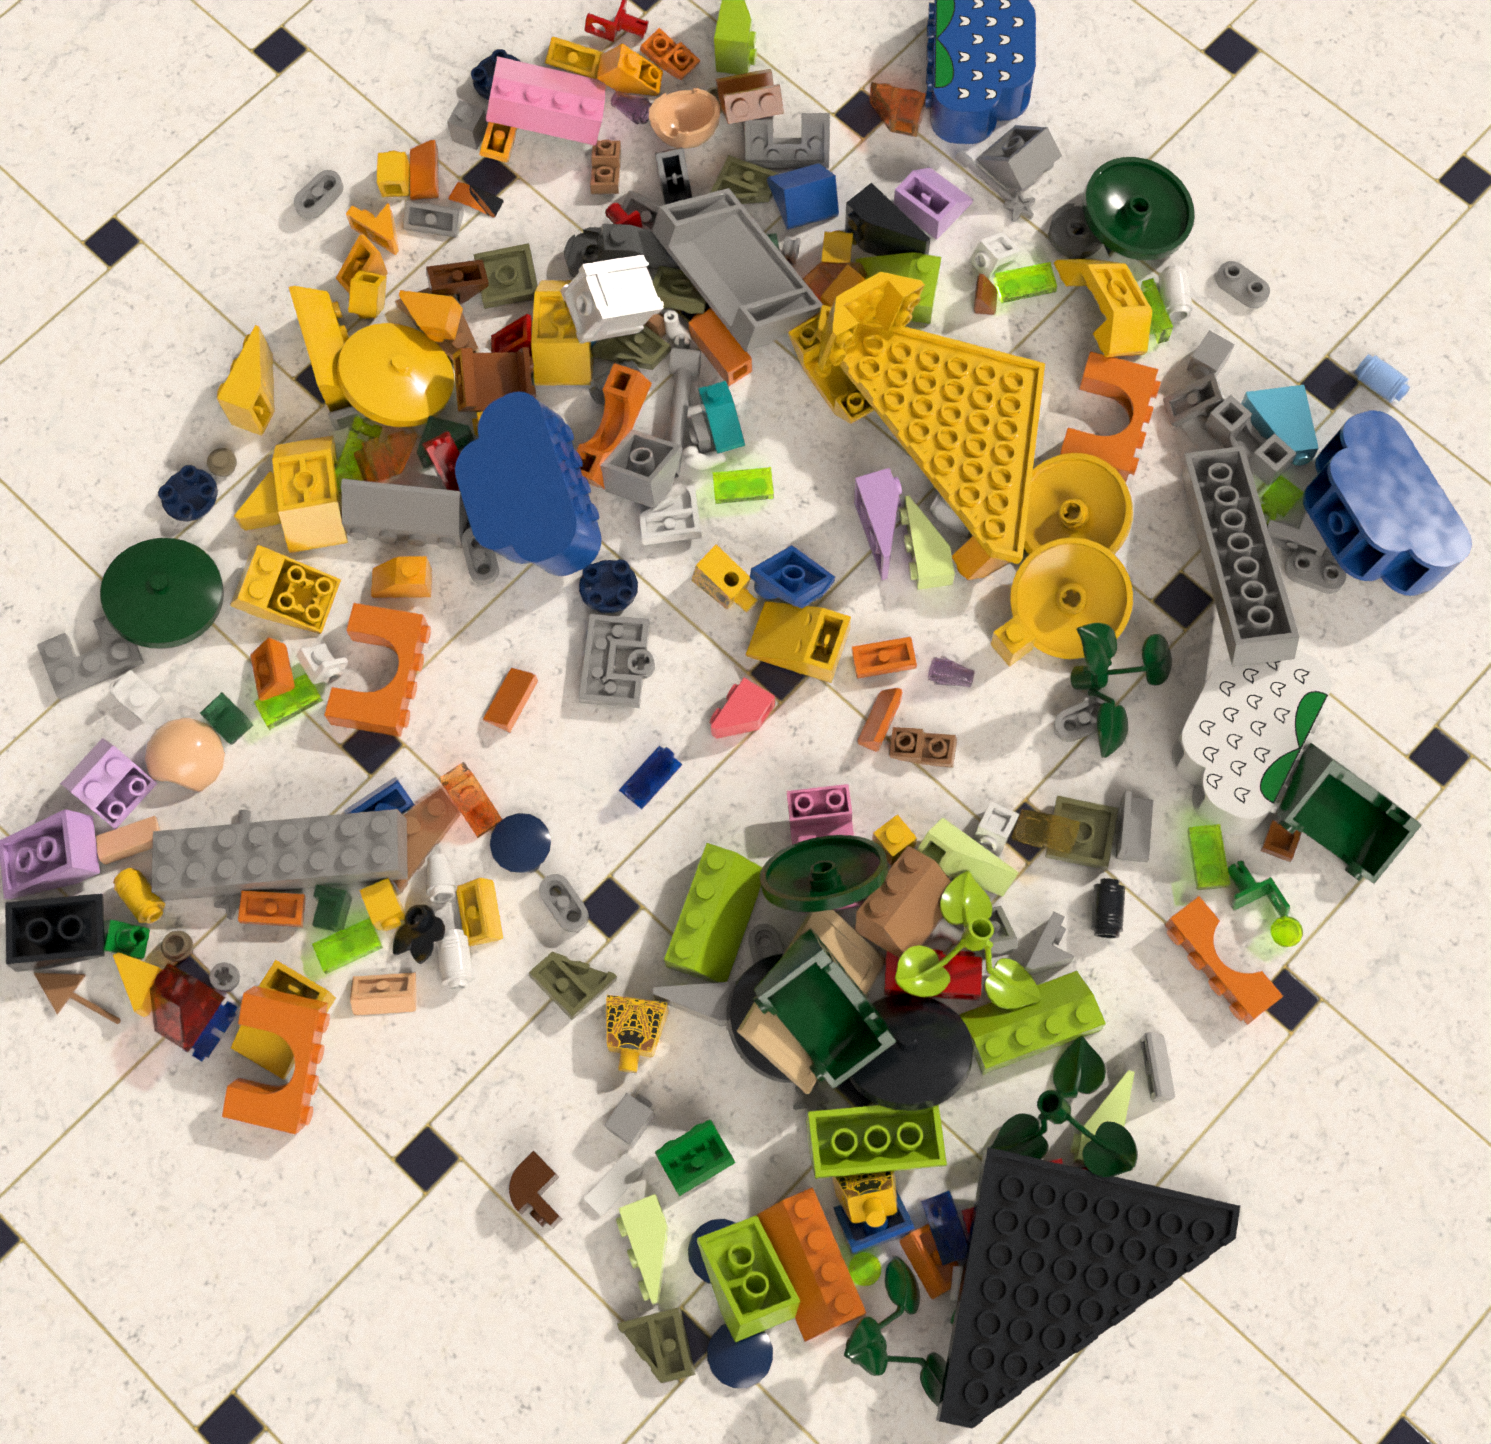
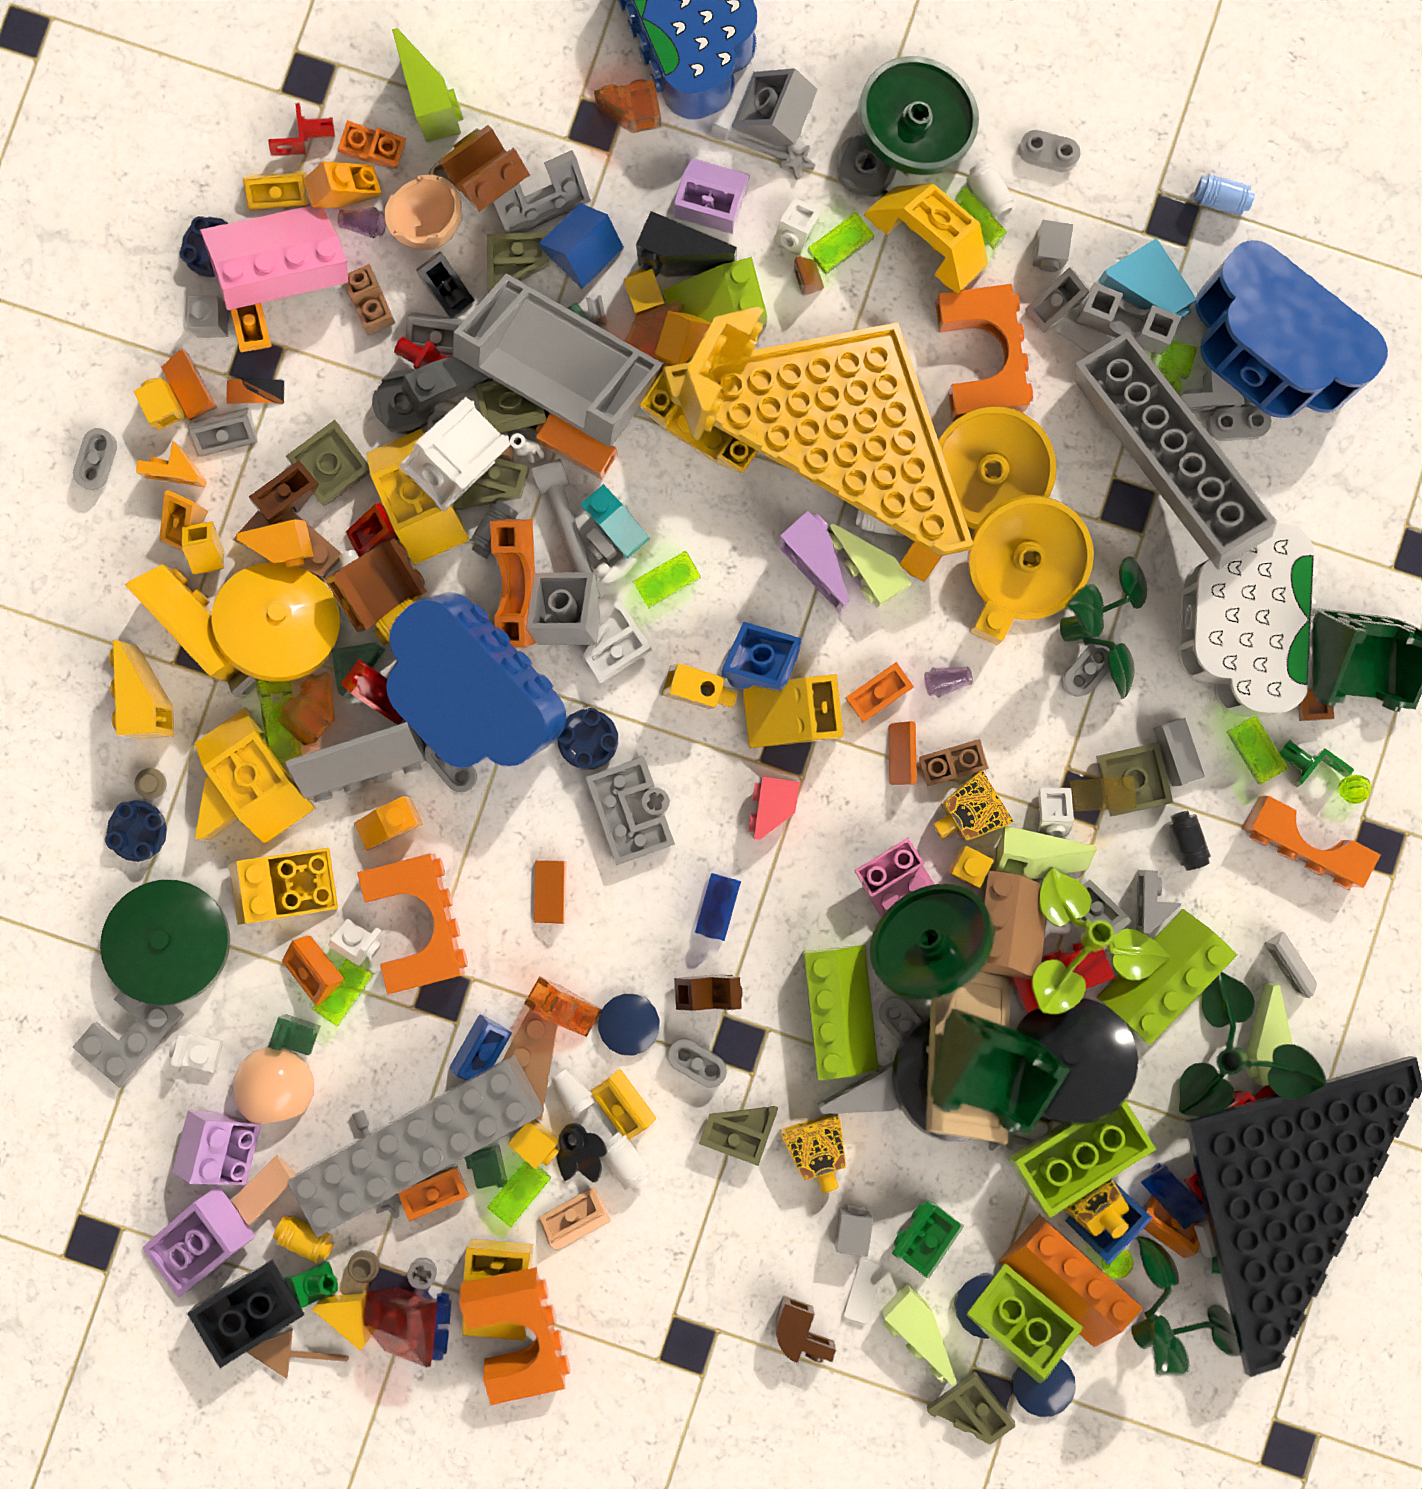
camera: 25 degrees left, 15 degrees up
(604, 843) = (708, 992): none -> reddish brown brick
(919, 793) = (972, 810): none -> torso

